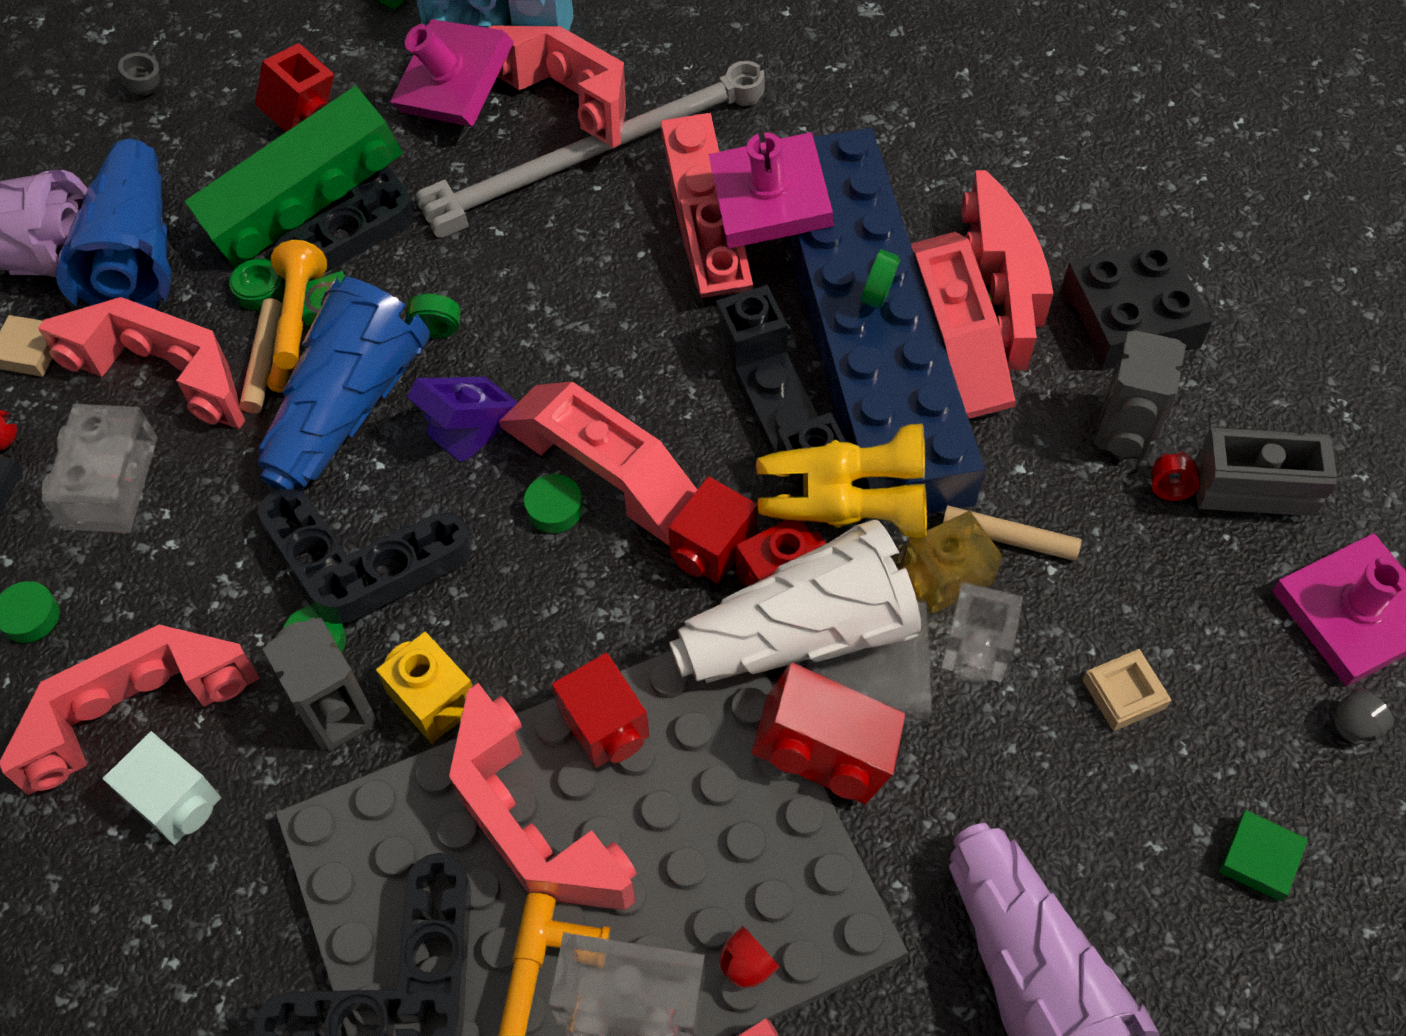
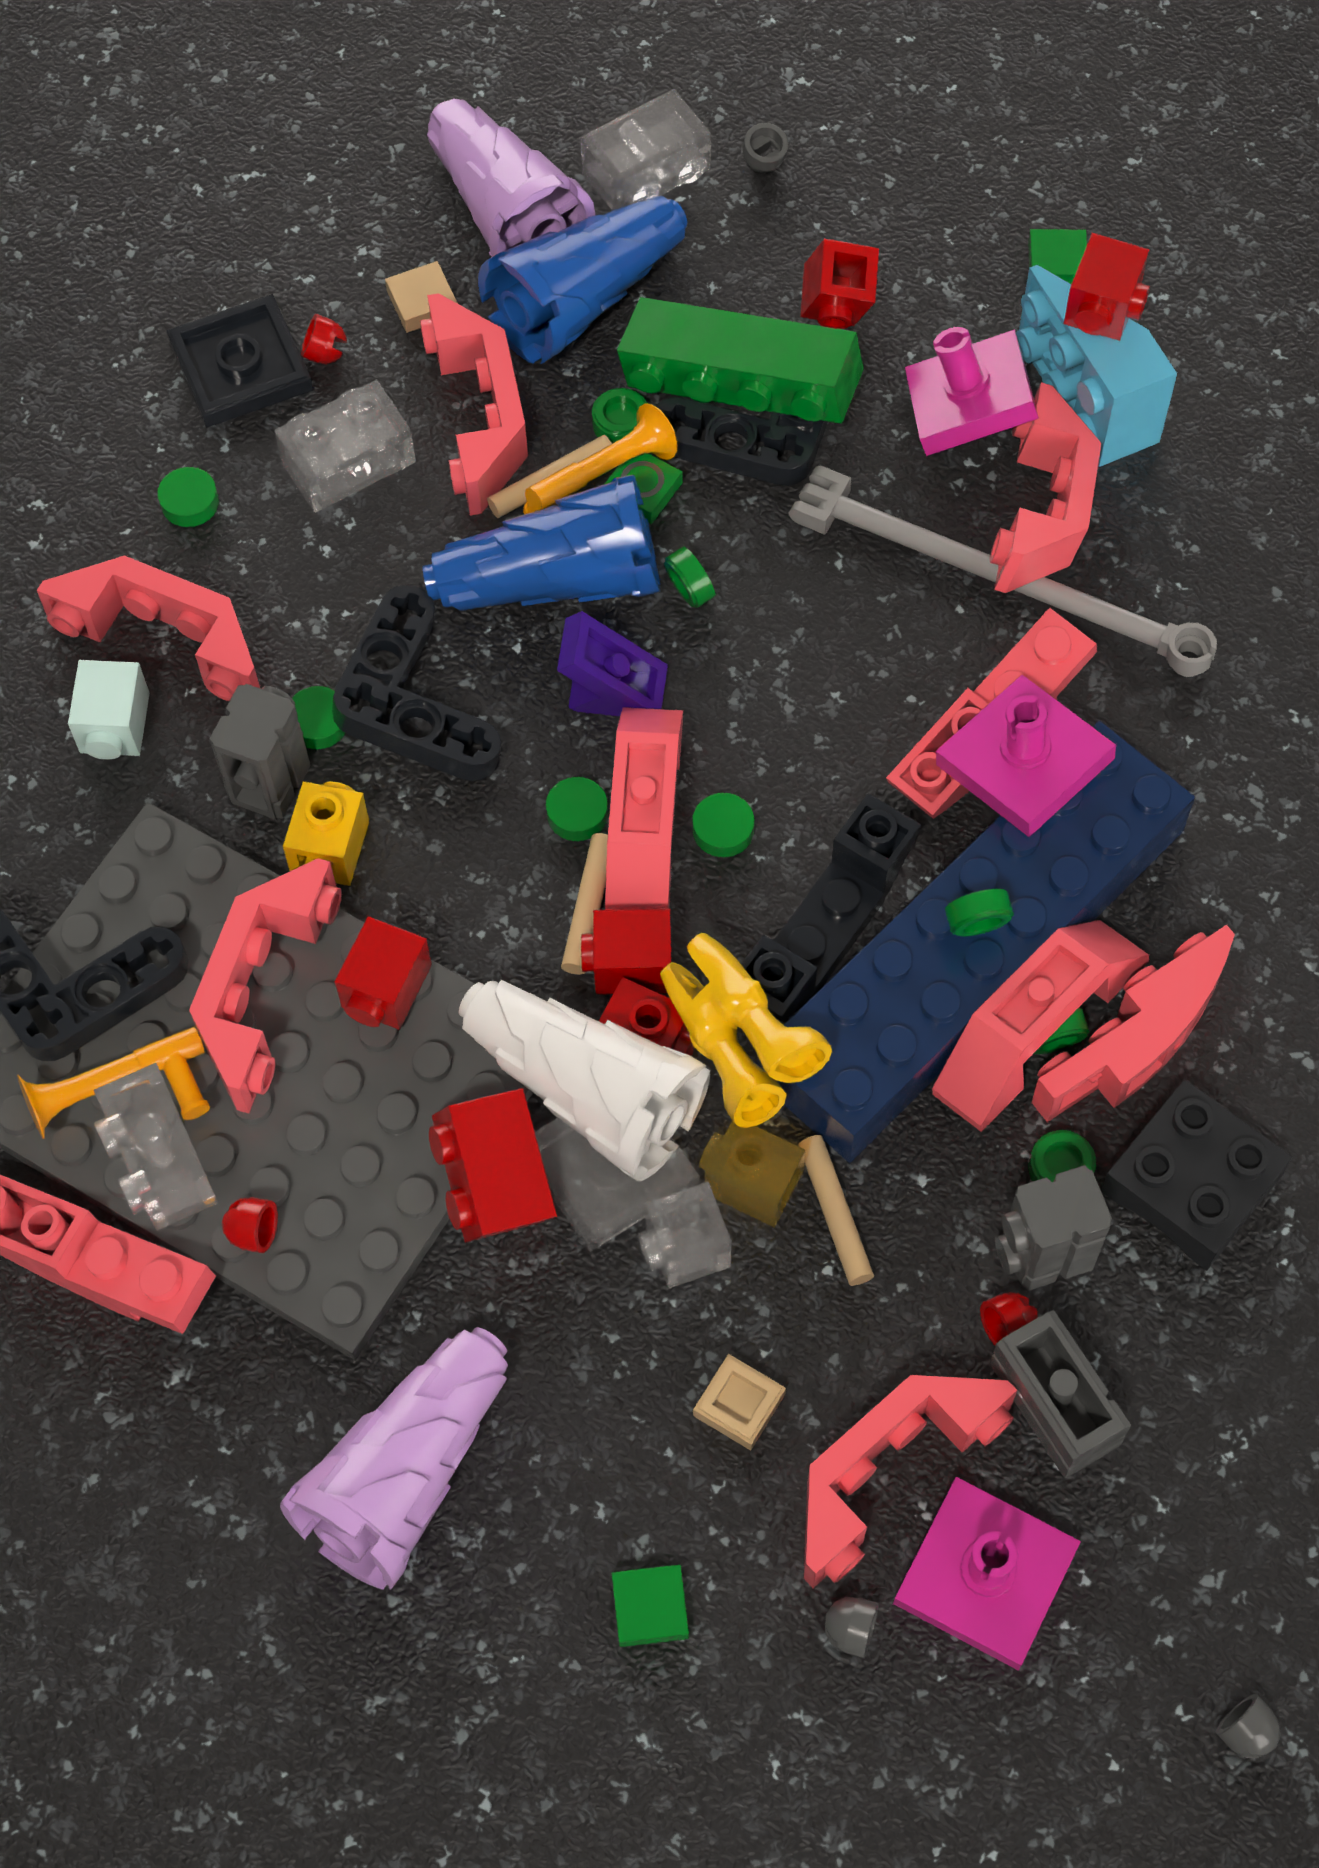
camera: 55 degrees right, 5 degrees up
(69, 129) = (646, 151): none -> clear brick
(638, 544) = (588, 899): none -> tan piece
(650, 412) = (723, 825): none -> green tile
(1070, 377) = (1058, 1153): none -> green tile
(1274, 685) = (958, 1406): none -> coral slope

